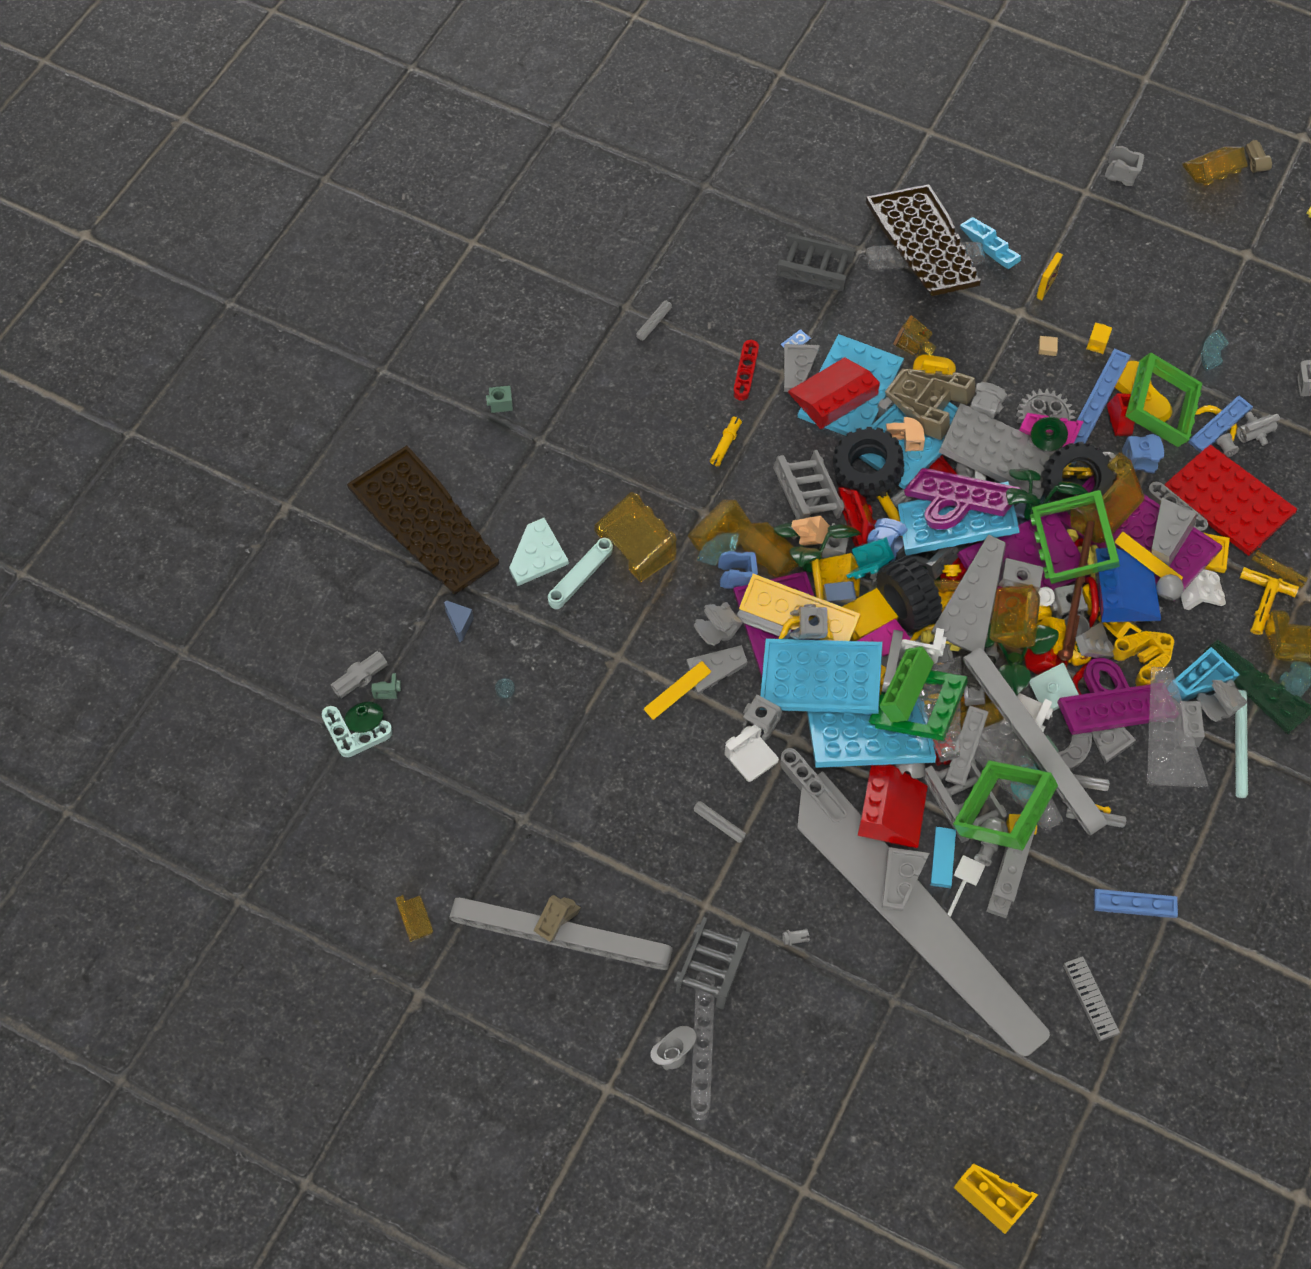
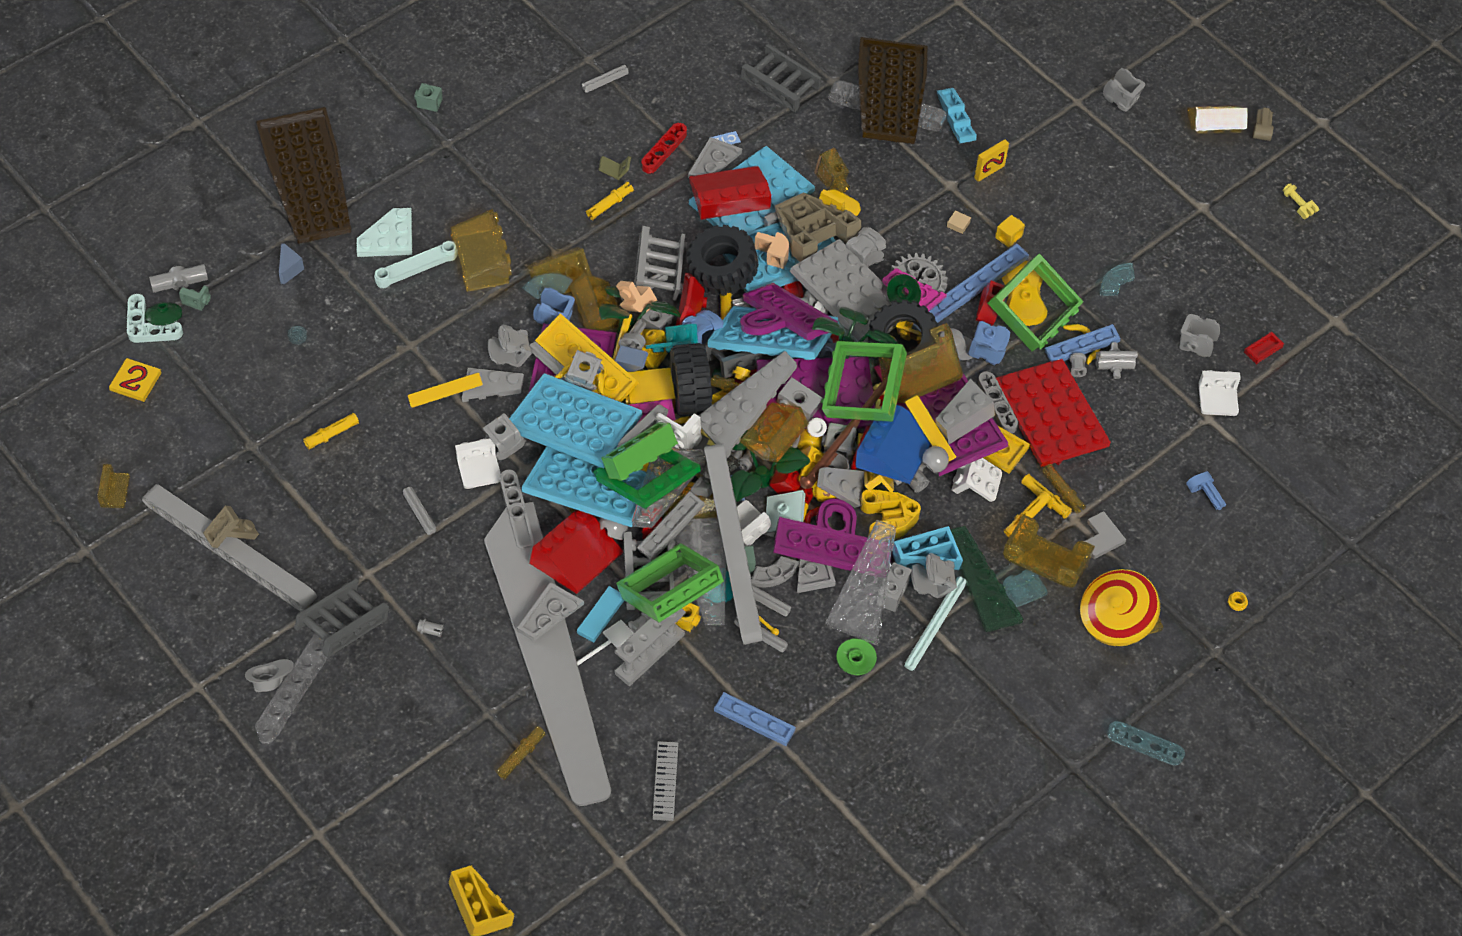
camera: 20 degrees right, 5 degrees down
(372, 796) = (135, 379): none -> yellow tile
(588, 781) = (326, 433): none -> yellow pin
(713, 408) = (613, 168): none -> olive bracket
(828, 572) = (634, 338): none -> light grey piece
(949, 1018) = (527, 745): none -> clear yellow pin
(1196, 798) = (858, 650): none -> bright green dish

